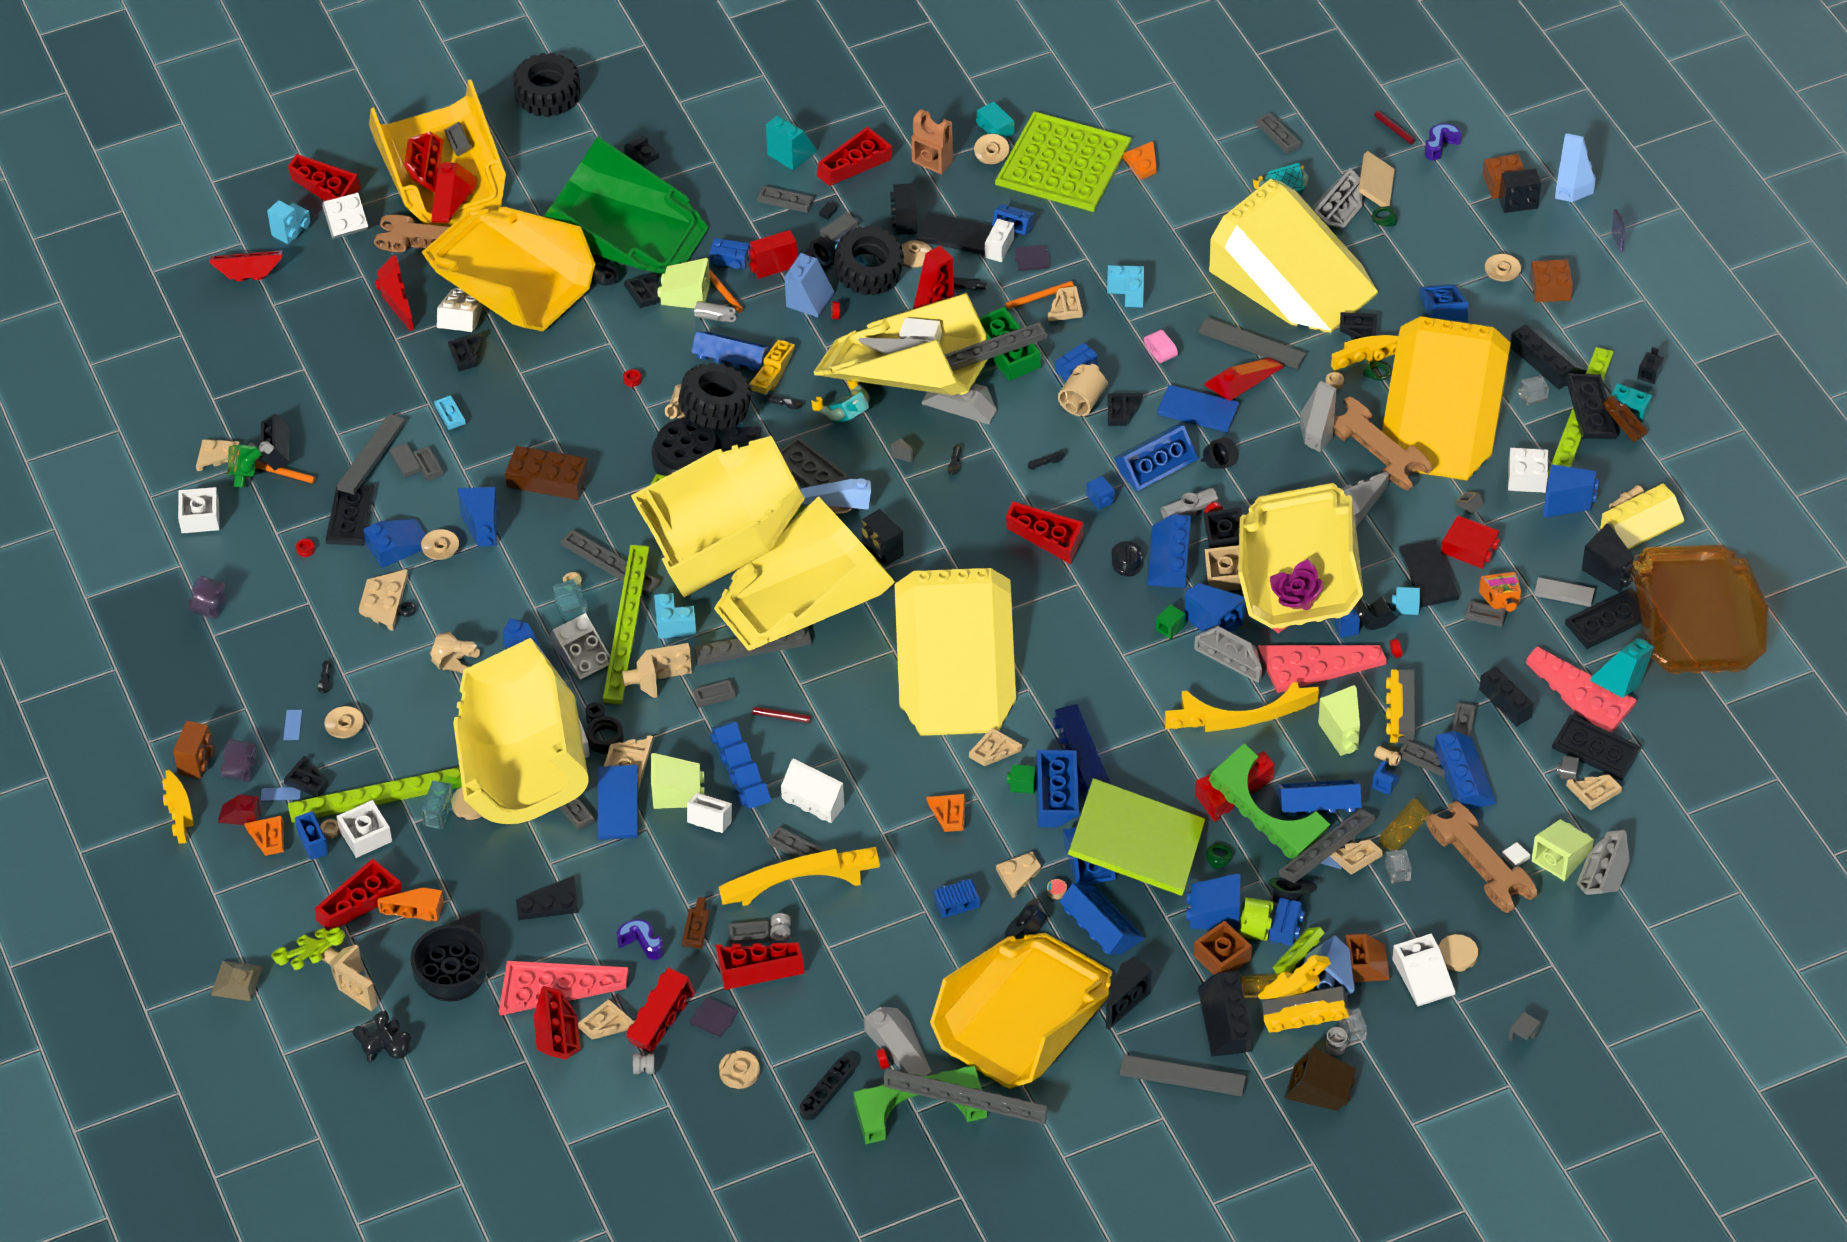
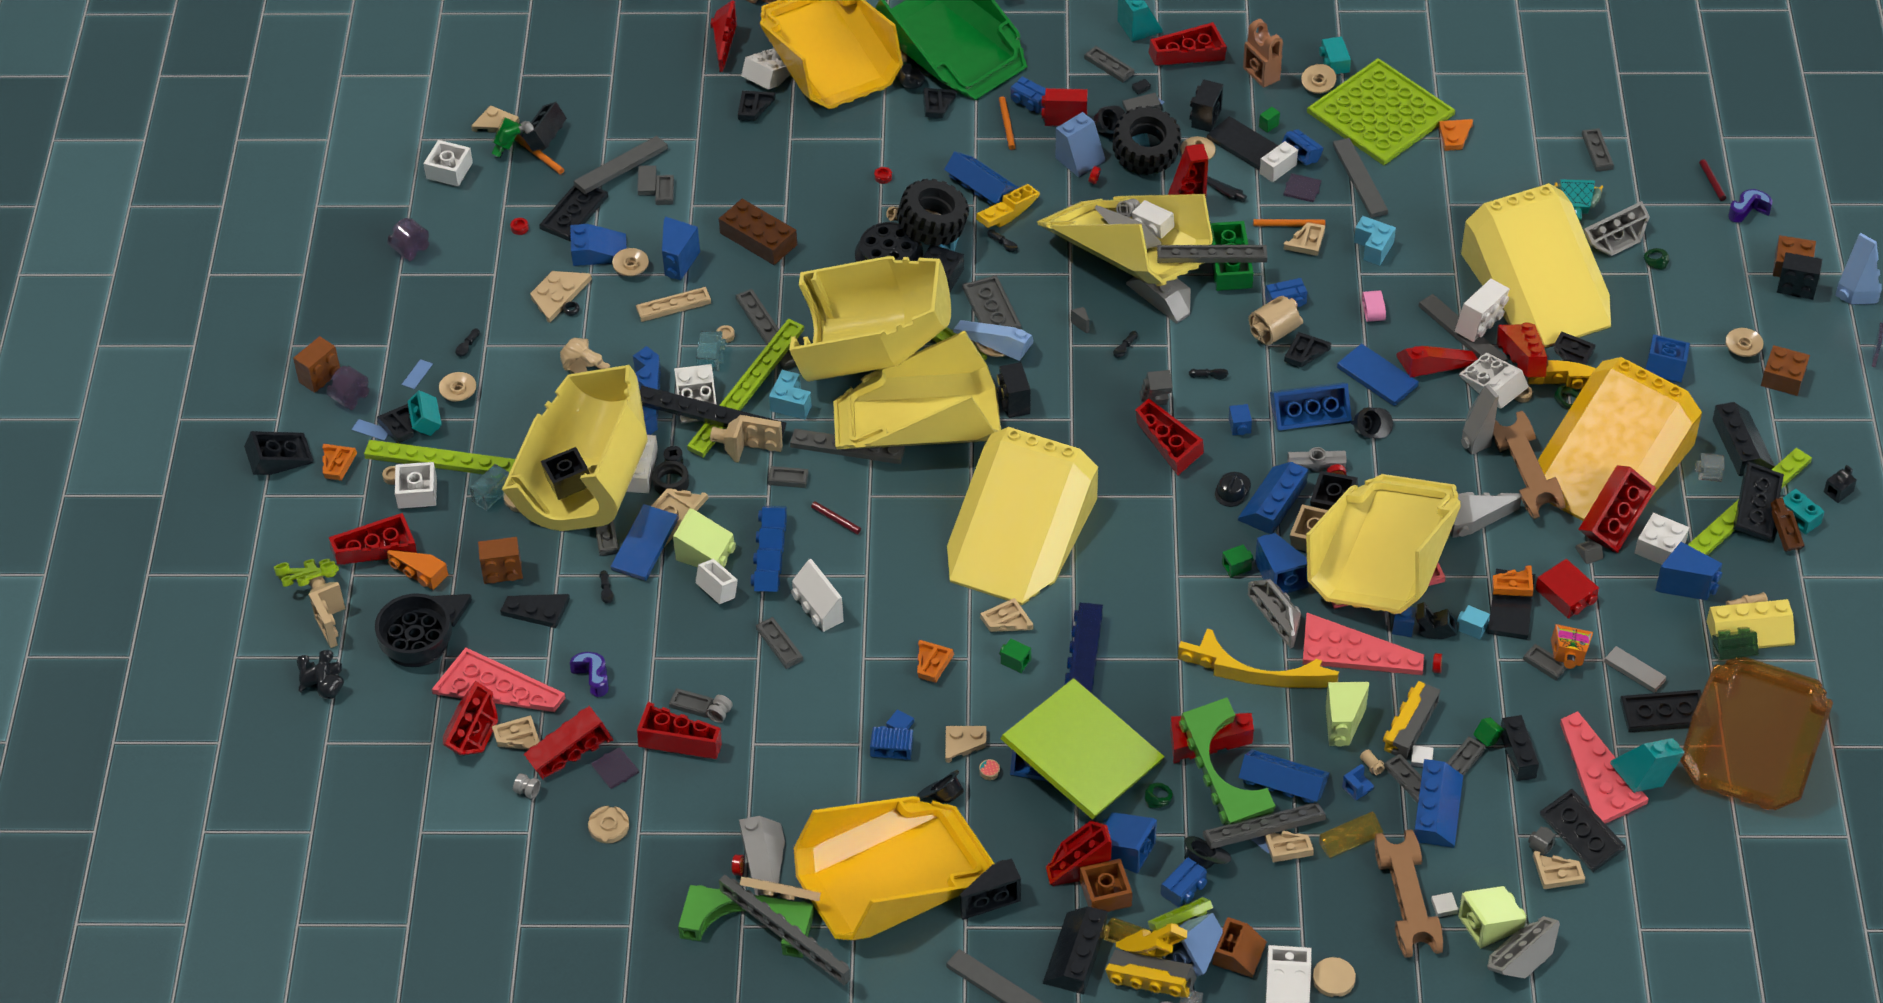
camera: 25 degrees right, 0 degrees up
(178, 805) = (280, 407): yellow slope -> none
(203, 847) = (276, 451): none -> black slope
(236, 980) = (236, 578): dark tan slope -> none
(240, 810) = (327, 432): dark red slope -> none
(311, 835) = (369, 474): blue brick -> none
(329, 758) = (424, 413): none -> teal brick
(449, 412) = (708, 152): medium azure plate -> none
(493, 868) = (500, 560): none -> dark orange brick
(504, 570) = (673, 304): none -> tan tile
(511, 763) = (564, 472): none -> black brick
(598, 660) = (693, 408): none -> black plate
(608, 863) = (606, 594): none -> black piece
(685, 284) = (975, 109): yellowish green slope -> none
(696, 925) = (648, 678): reddish brown hinge -> none
(714, 312) = (986, 141): light grey piece -> none
(824, 1086) = (676, 875): black beam -> none
(829, 863) = (803, 673): yellow slope -> none
(846, 406) = (1052, 262): torso -> none
(894, 327) = (1126, 207): none -> light grey wheel
(941, 1064) = (786, 891): none -> tan wing
(951, 876) = (900, 720): none -> blue tile
(967, 203) = (1269, 119): none -> green piece
(1015, 489) = (1156, 387): none -> dark grey arch
(1056, 787) = (1038, 673): blue slope -> none
(1080, 230) = (1360, 178): none -> dark grey tile
(1100, 919) = (1012, 812): blue slope -> none
(1185, 924) = (1083, 848): none -> red wedge
(1255, 919) = (1153, 868): lime brick -> none
(1264, 316) = (1482, 310): none -> white brick
(1299, 588) = (1367, 572): magenta brick -> none
(1302, 374) = (1501, 376): none -> white slope
(1320, 338) = (1524, 347): none -> red wedge
(1376, 180) = (1665, 221): tan tile -> none
(1398, 866) = (1322, 871): clear brick -> none
(1424, 553) = (1514, 583): none -> orange wing
(1426, 735) = (1420, 753): none -> white tile
(1472, 692) = (1488, 731): none -> green piece
(1477, 454) = (1617, 508): none -> red slope
(1608, 559) = (1692, 652): black slope -> none
(1641, 537) = (1735, 644): none -> clear green brick

